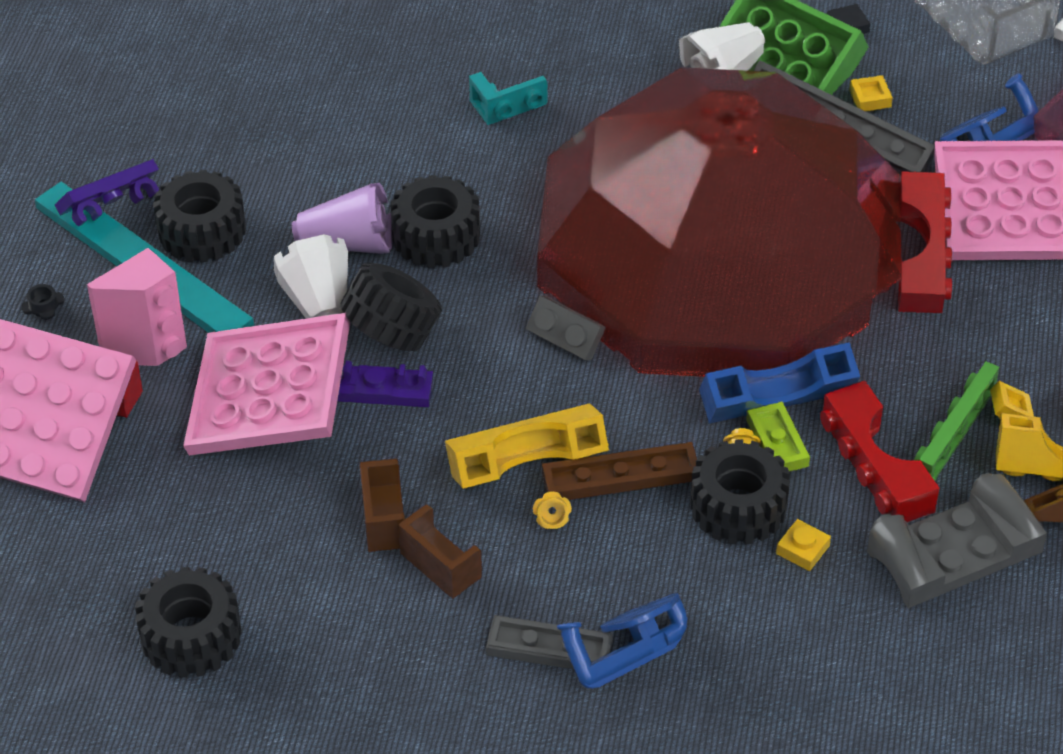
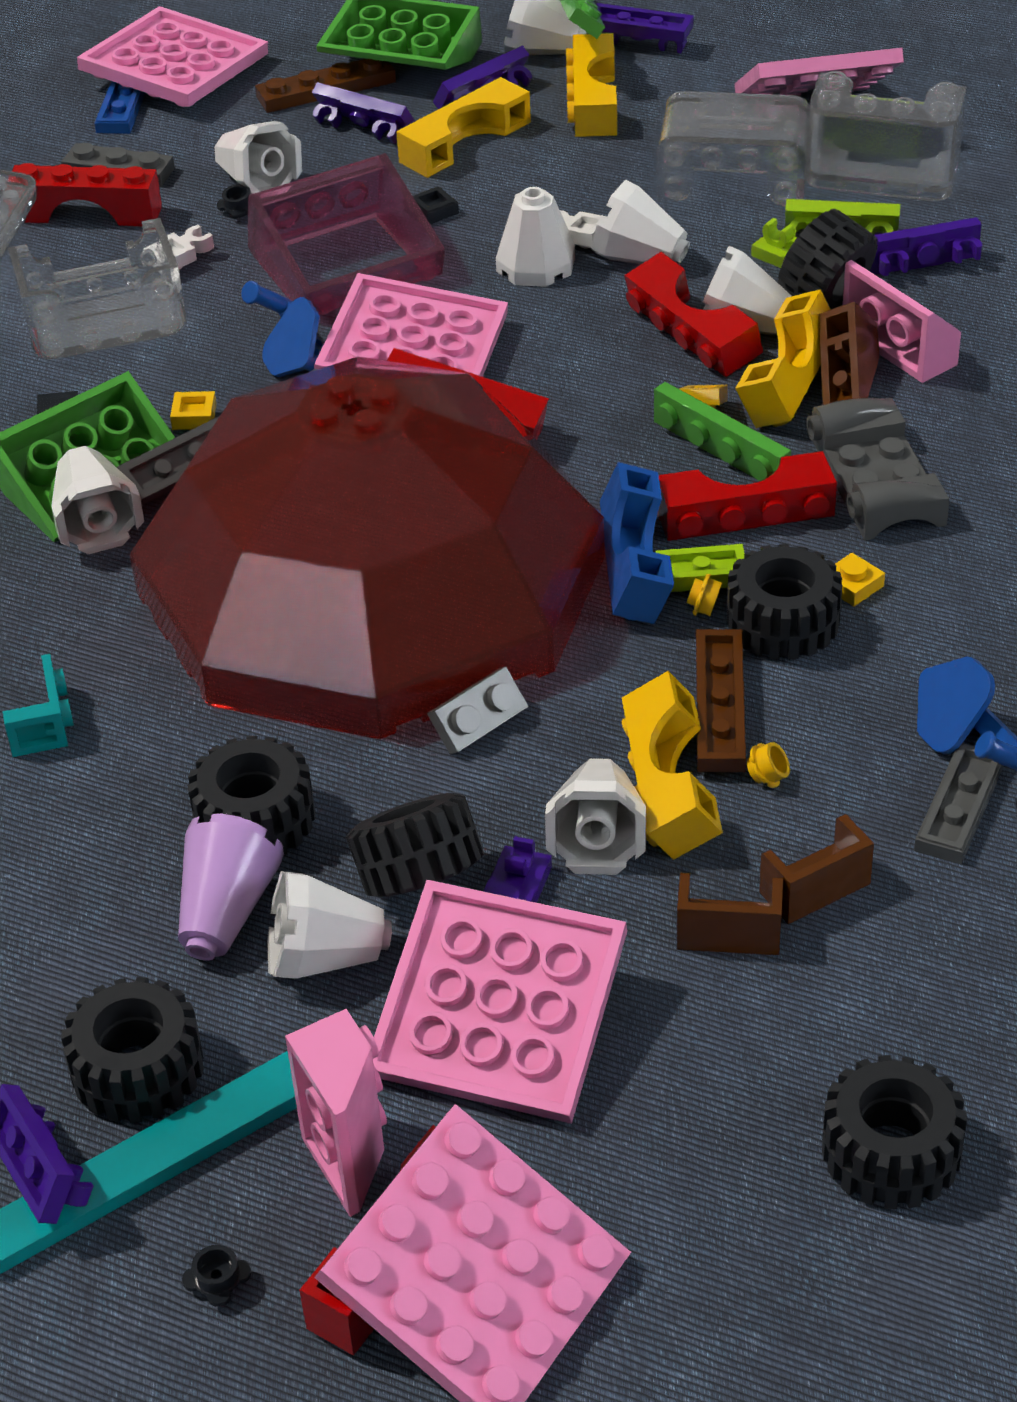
camera: 75 degrees left, 5 degrees down
(464, 407) = (596, 820): none -> white cone

